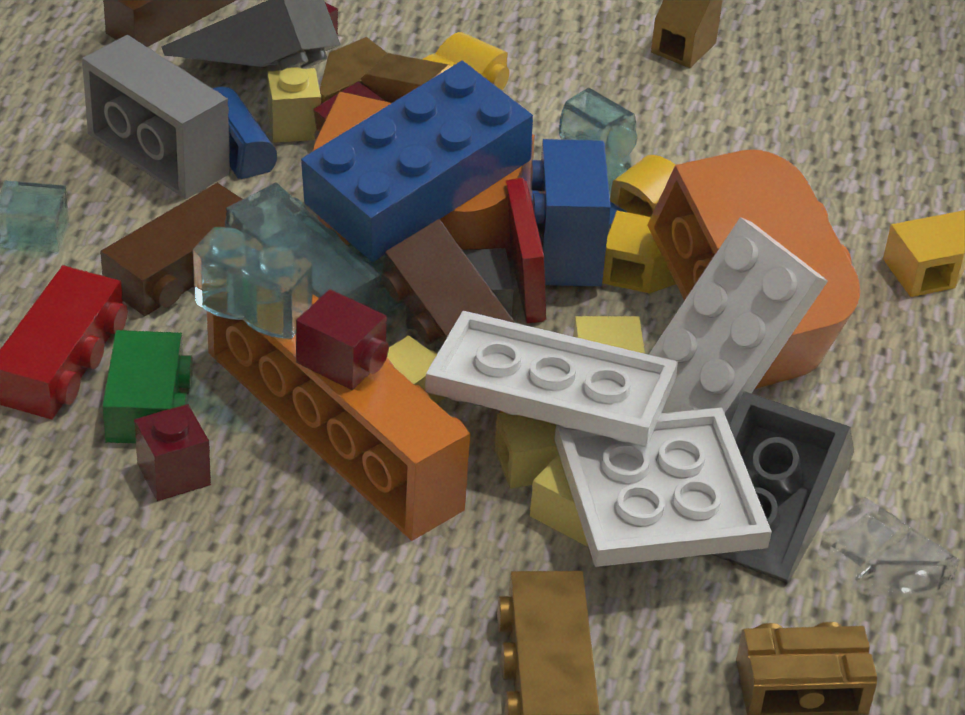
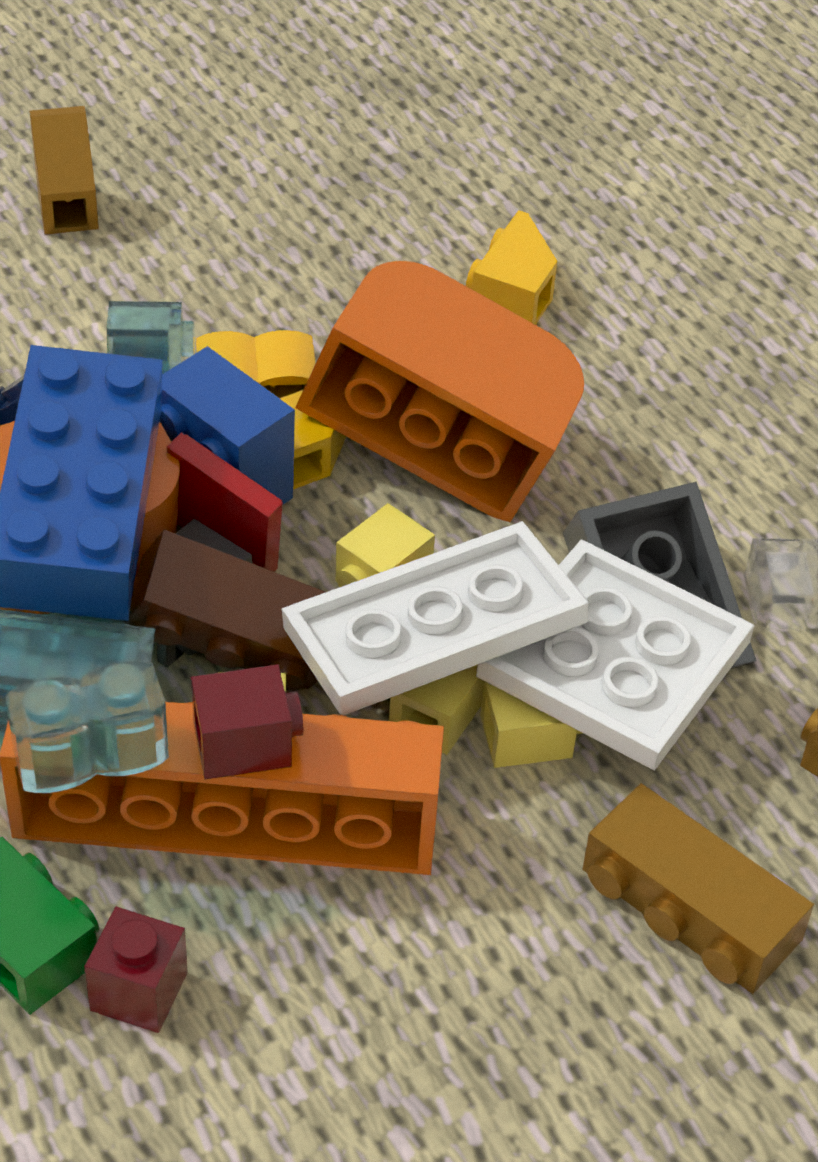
camera: 45 degrees left, 5 degrees up
(736, 320) = (514, 443): white plate -> none

